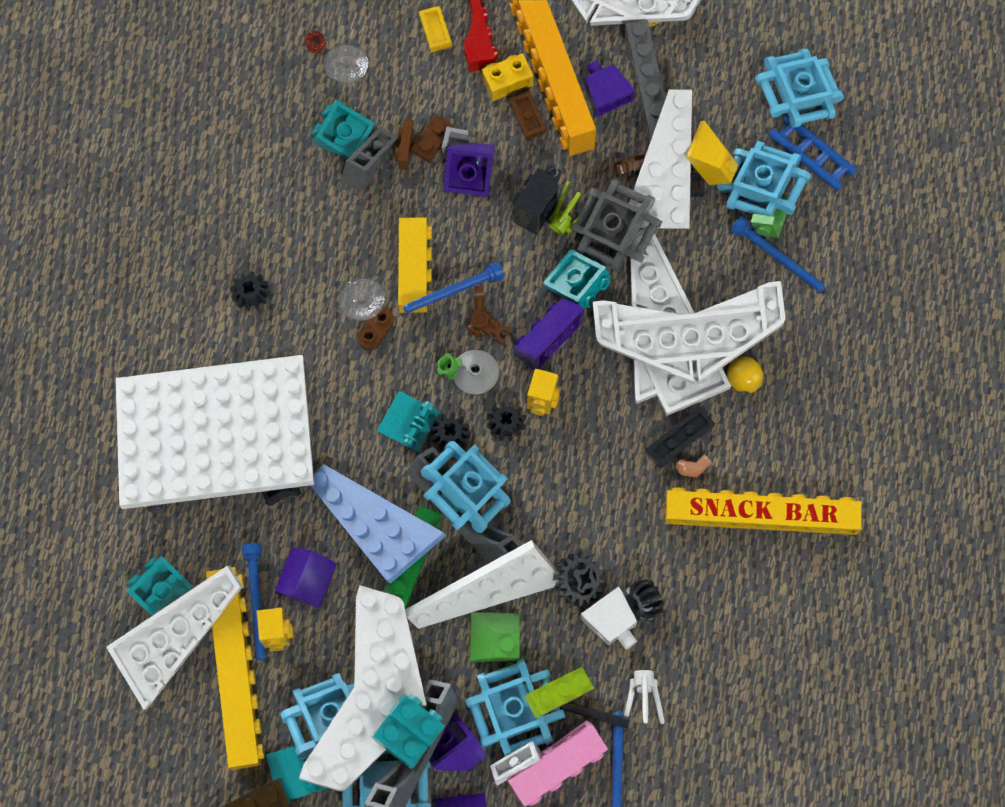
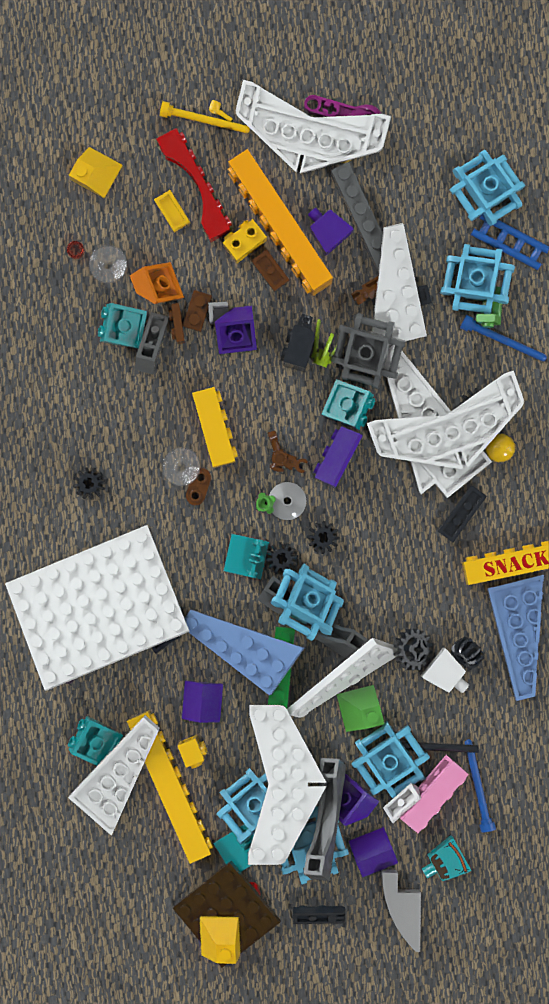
camera: 15 degrees left, 15 degrees up
(251, 553) = (156, 695): blue piece -> none
(395, 94) = (157, 283): none -> orange slope
(408, 730) = (319, 806): teal plate -> none
(492, 273) = (279, 416): blue piece -> none
(543, 392) = (347, 509): yellow brick -> none
(559, 692) = (421, 741): lime plate -> none
(645, 684) = (481, 714): white plant -> none
(692, 469) = (477, 536): nougat arm -> none
(711, 157) = (431, 271): yellow slope -> none
(716, 584) = (518, 622): none -> medium blue wing

